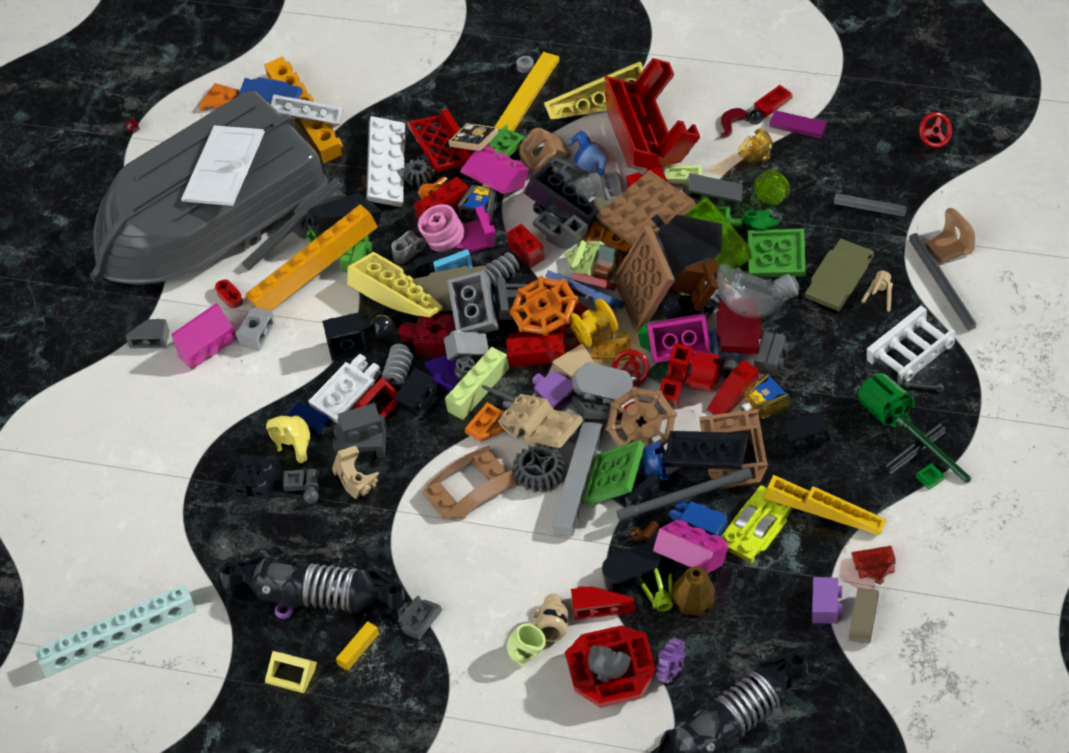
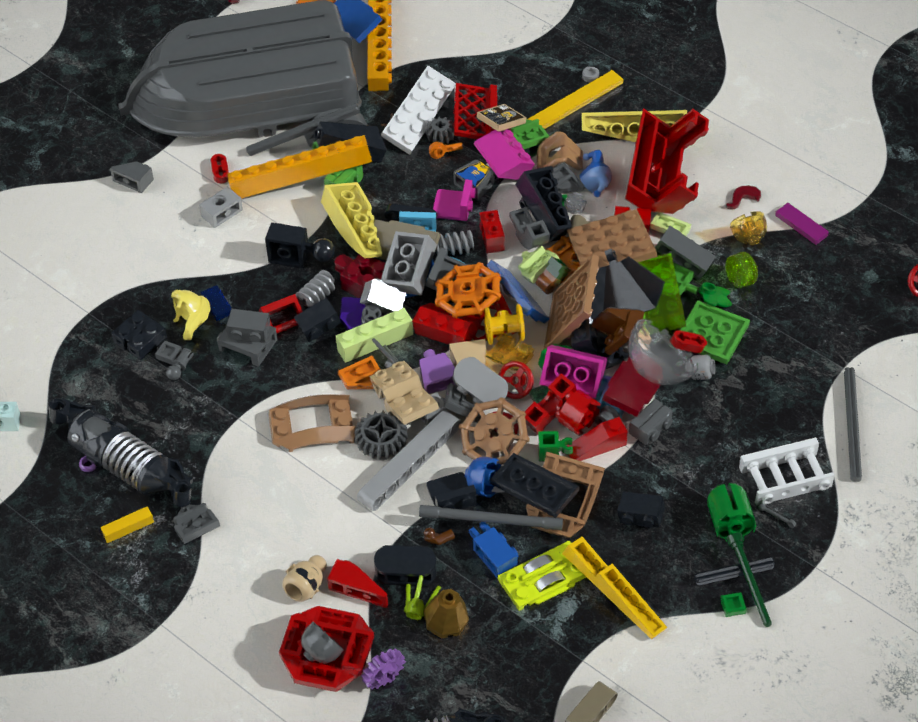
camera: 20 degrees right, 0 degrees up
(203, 336) = (172, 195): dark pink slope -> none
(223, 165) = (264, 53): white door -> none
(278, 657) = (73, 521): light yellow tile -> none
(308, 110) = (376, 38): white piece -> none
(345, 388) = (263, 289): white tile -> none
(347, 473) = (217, 356): tan tile -> none
(405, 247) = (389, 190): light grey piece -> none
(441, 228) = (427, 185): bright pink wheel -> none
(447, 194) = (431, 163): red arch -> none
(525, 643) = (266, 590): yellowish green piece -> none
(593, 281) = (529, 287): tile -> none
(611, 185) = (601, 208): light grey tile -> none
(613, 473) = (440, 469): bright green plate -> none
(691, 546) = (467, 569): dark pink brick -> none
(696, 408) = (549, 442): none -> green brick
(755, 116) = (767, 201): black hinge -> none
(764, 269) = (688, 341): none -> red beam
(766, 397) = (621, 461): torso -> none
(773, 100) = (791, 193): red plate -> none
(825, 600) = (562, 678): medium lavender brick -> none
(839, 274) = (757, 375): olive piece -> none
(868, 204) = (826, 324): dark grey axle -> none
(874, 563) = (631, 664): clear red slope -> none
(881, 282) = (793, 400): tan plant -> none
(946, 245) = (877, 391): medium nougat piece -> none

